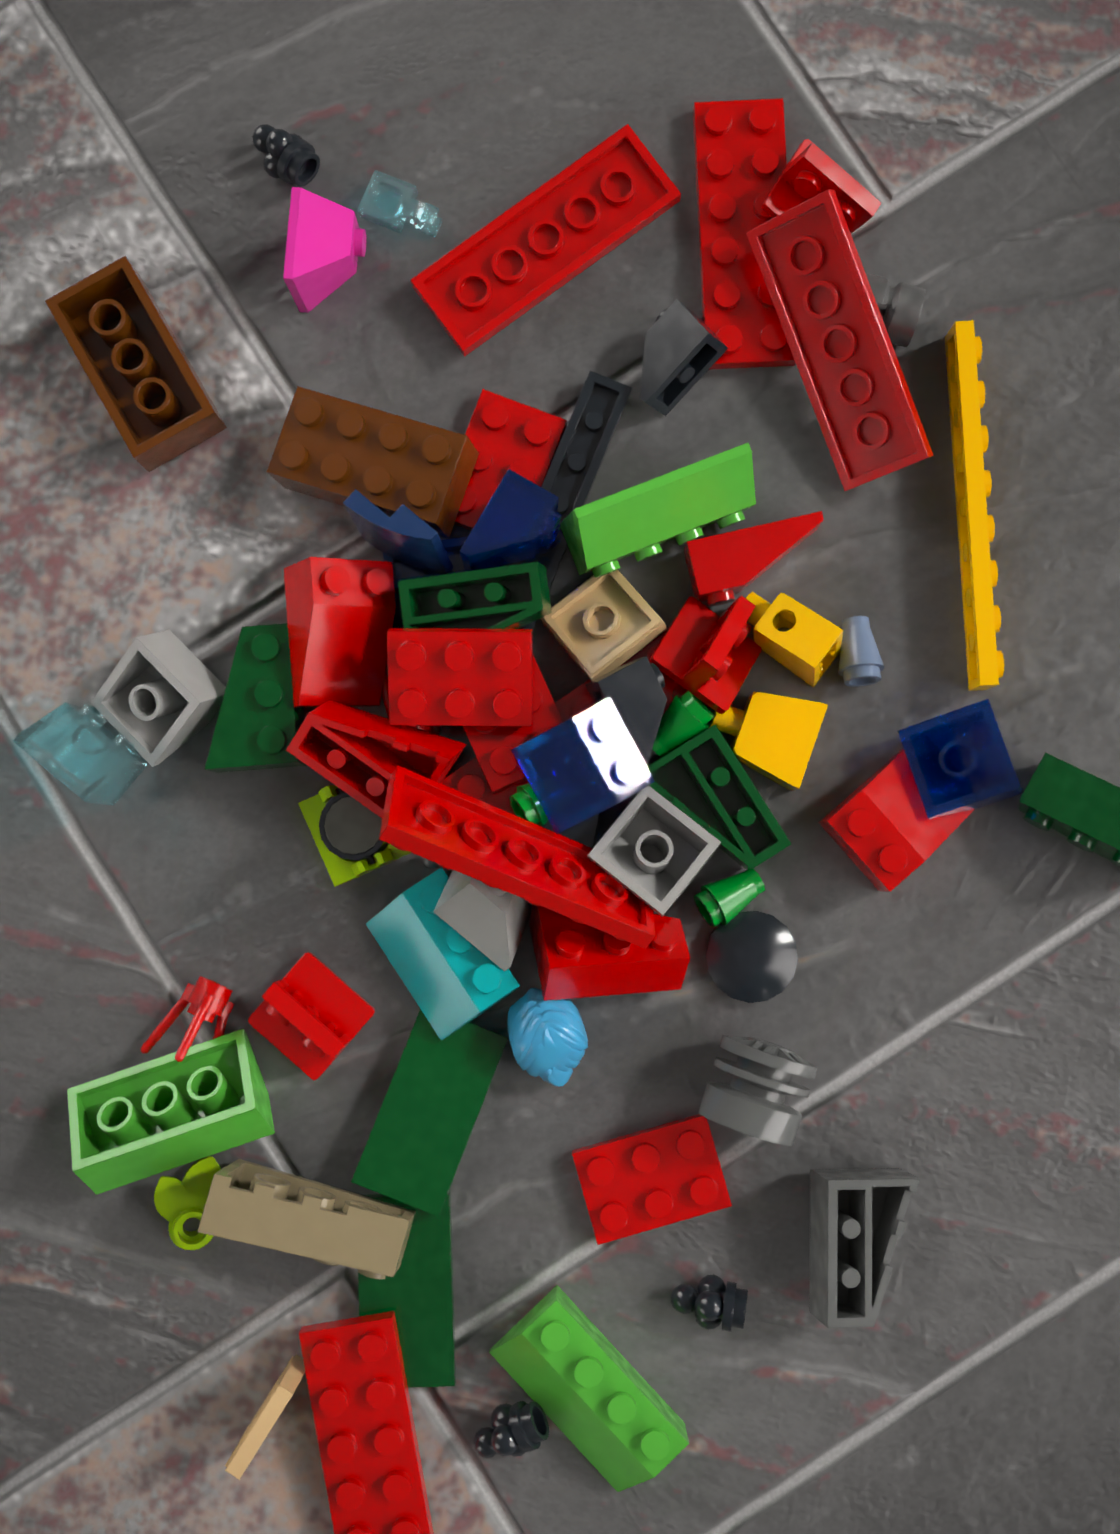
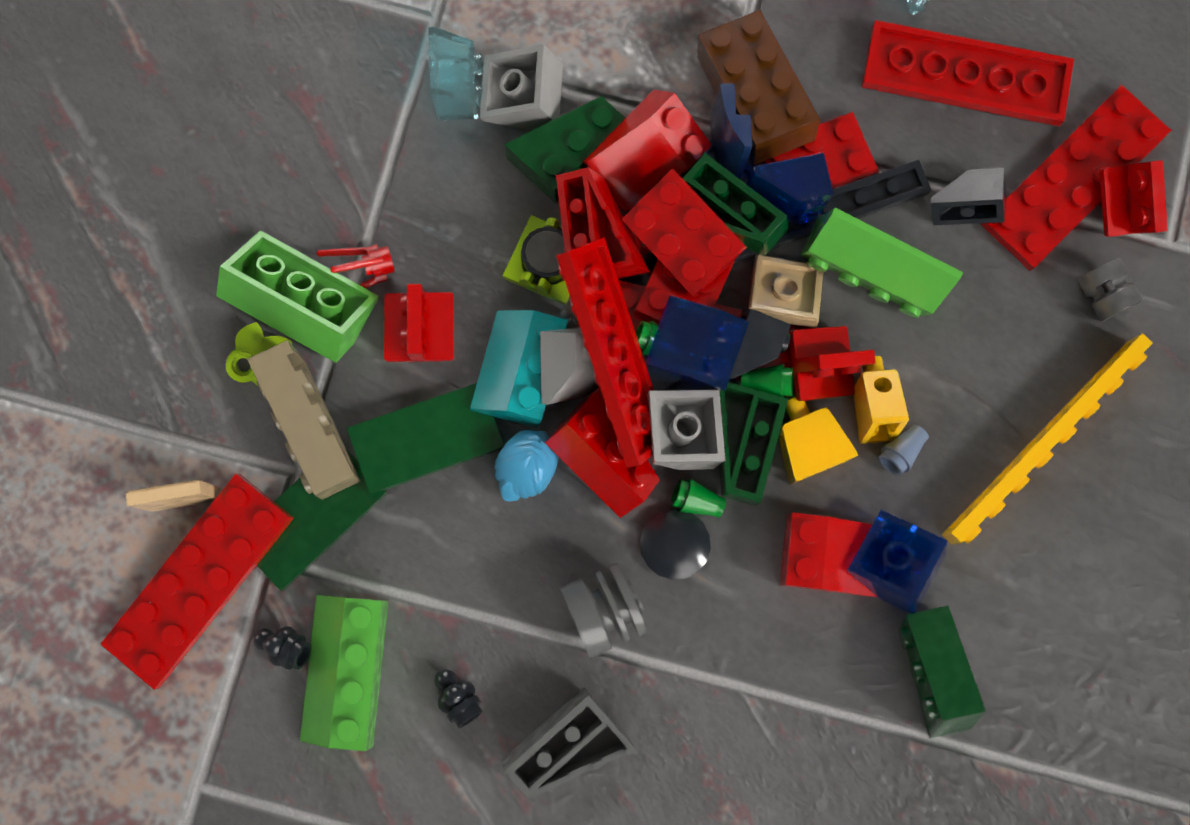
camera: 40 degrees right, 5 degrees down
(651, 1178) = (497, 600): red plate -> none
(735, 559) = (898, 336): red slope -> none
(839, 341) = (1067, 278): red plate -> none

